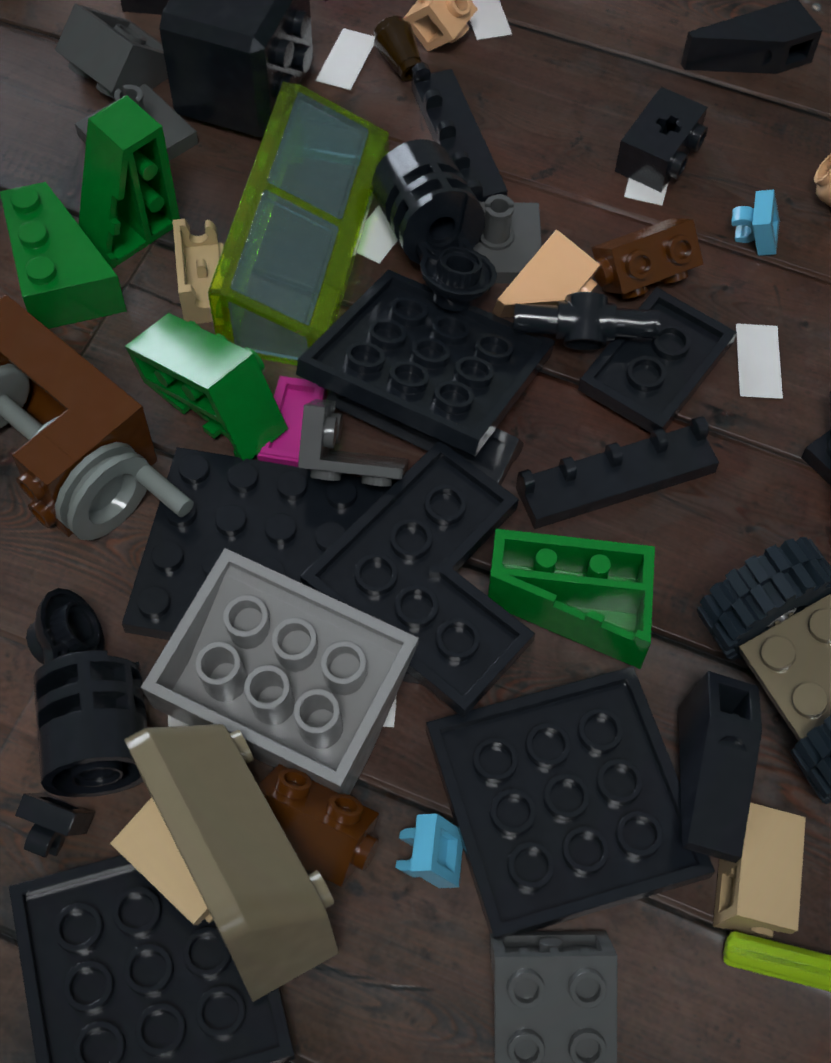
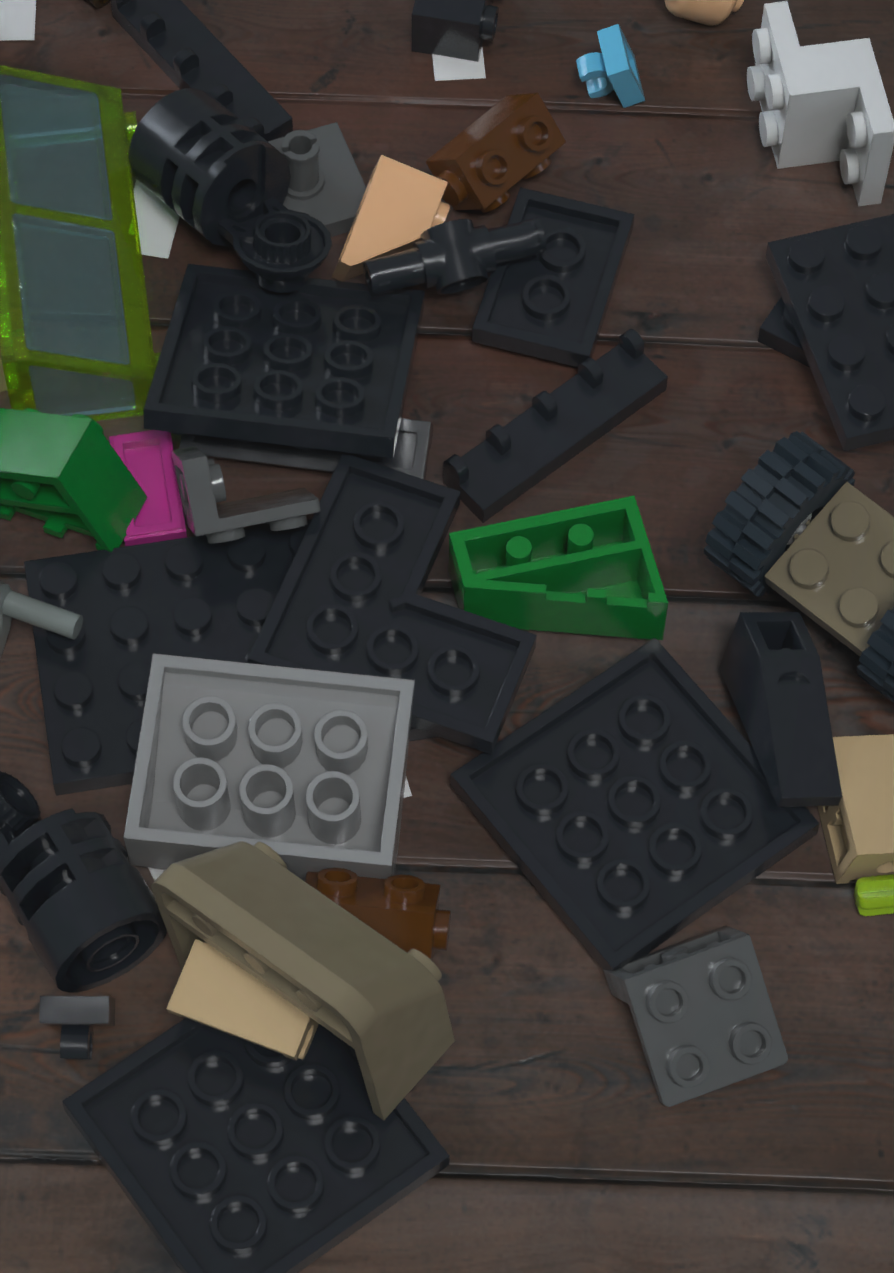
camera: 20 degrees left, 0 degrees up
(435, 851) = (515, 906): medium azure tile -> none
(759, 361) = (670, 239): white sticker -> none

